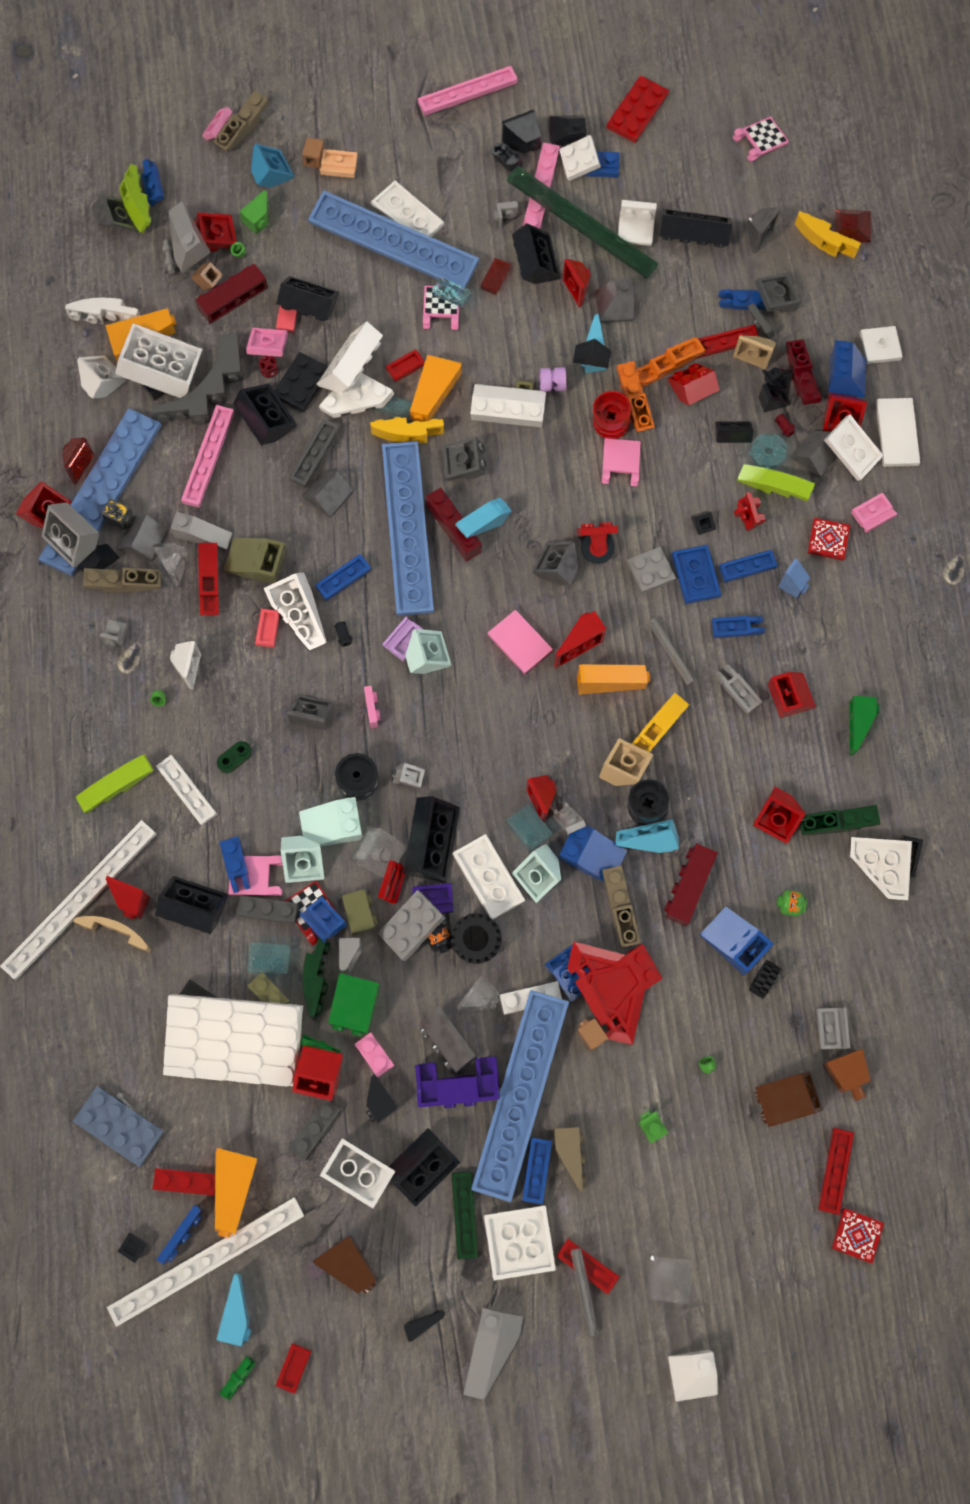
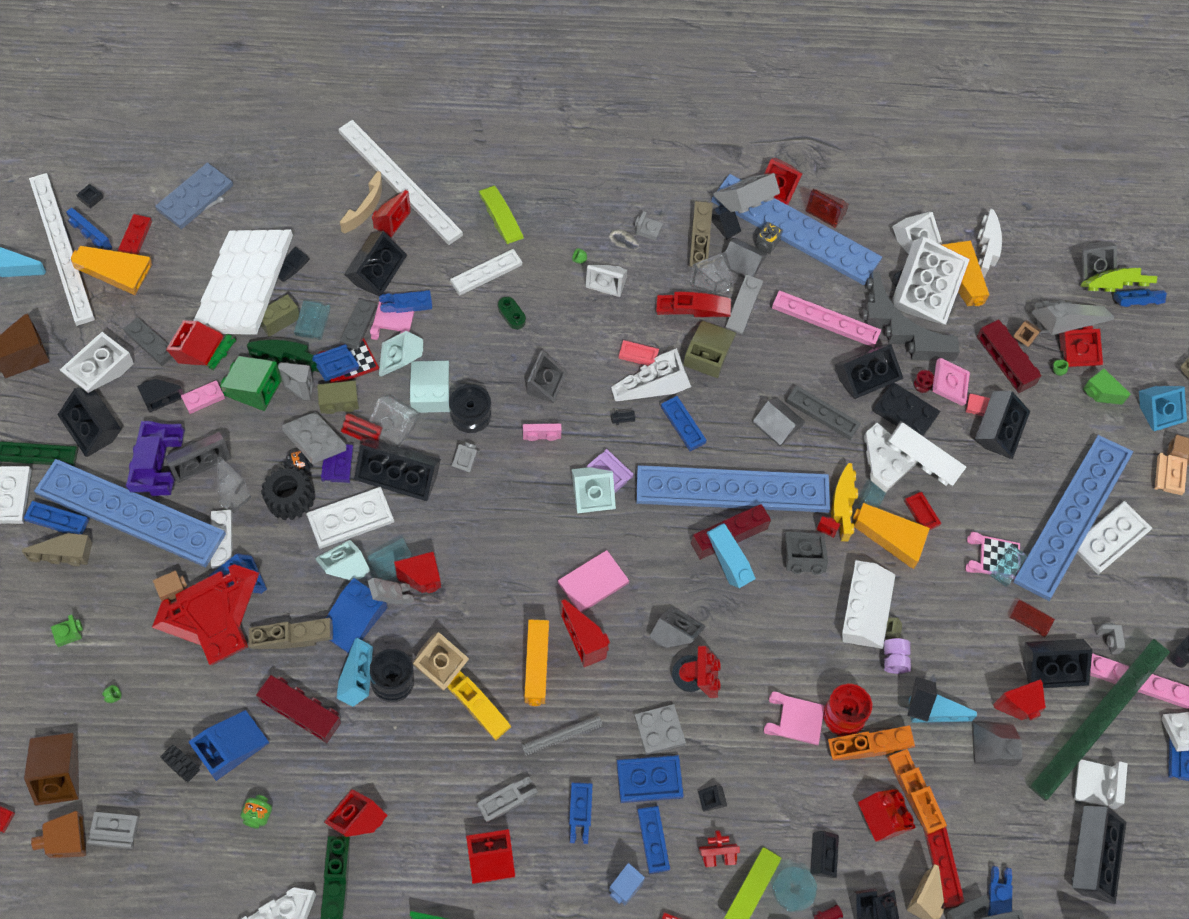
camera: 95 degrees right, 10 degrees down
(434, 442) = (828, 526): none -> red plate

